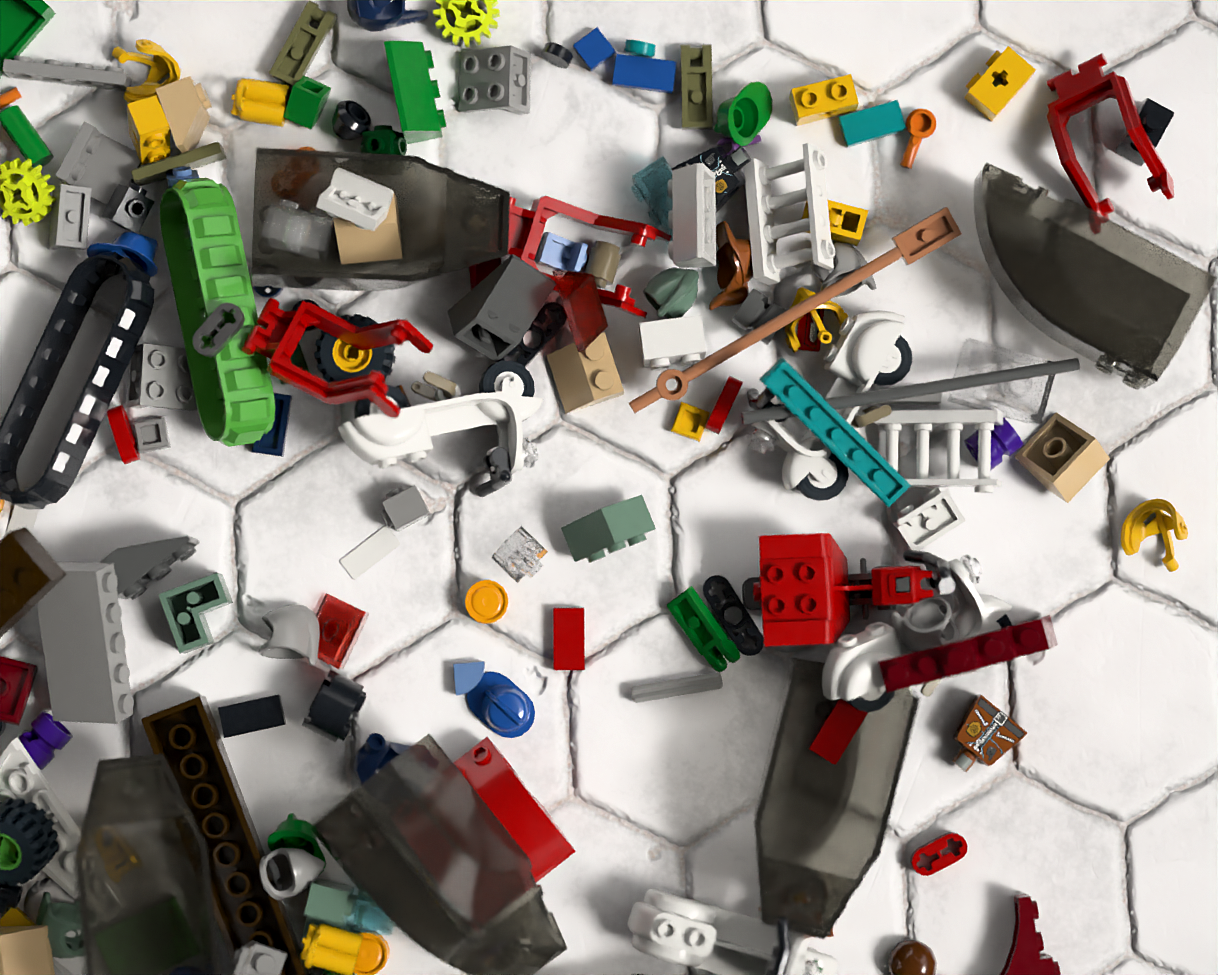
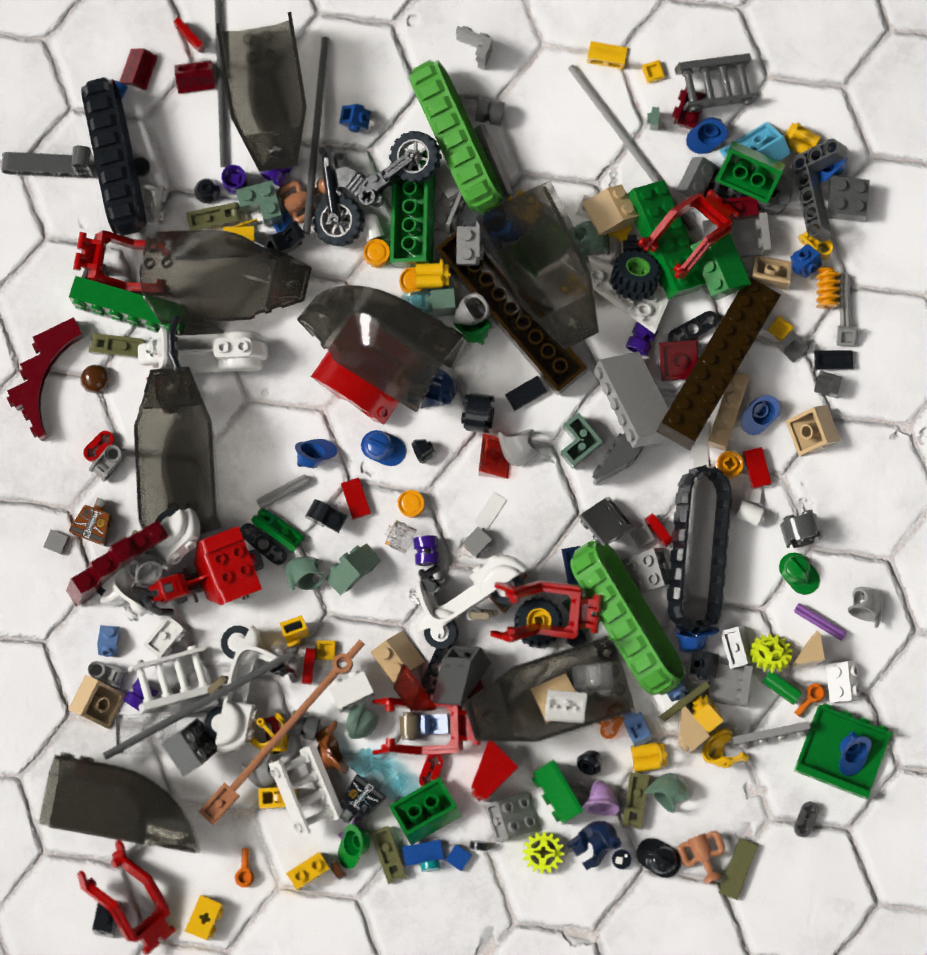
camera: 160 degrees right, 5 degrees down
(198, 468) = (605, 522): none -> dark grey slope
(224, 335) = (613, 598): flat silver beam -> none
(248, 42) = (669, 790): none -> sand green piece
(260, 136) = (637, 729): none -> medium blue bracket
(306, 102) = (620, 765): green brick -> none
(352, 61) = (601, 800): none -> lavender piece
(383, 141) = (564, 750): dark green brick -> none
(440, 678) = (422, 450): none -> black cone
(467, 676) = (407, 457): medium blue tile -> none
(487, 531) = (426, 543): none -> dark purple wheel
(503, 147) = (492, 772): none -> red slope
(587, 184) = (426, 768): none -> red beam
(607, 731) = (313, 452): none -> blue piece
(620, 130) = (425, 811): none -> green slope
(623, 624) = (326, 516): none -> black brick
(691, 549) = (301, 573): none -> sand green piece
(692, 217) = (362, 766): white slope -> none
(731, 462) = (294, 631): none -> yellow piece
(779, 88) = (337, 869): none -> reddish brown tile
(834, 432) = (236, 663): teal tile -> none
(837, 731) = (180, 493): red tile -> none
(872, 123) = (274, 868): teal tile -> none
(935, 821) = (106, 463): none -> light grey piece
(944, 333) = (190, 747): none -> dark grey slope
(1016, 545) = (108, 640): none -> medium blue bracket
(1033, 493) = (108, 674): none -> light grey piece
(1050, 725) = (56, 542): none -> light grey tile
(1134, 530) = (24, 684): yellow helmet -> none

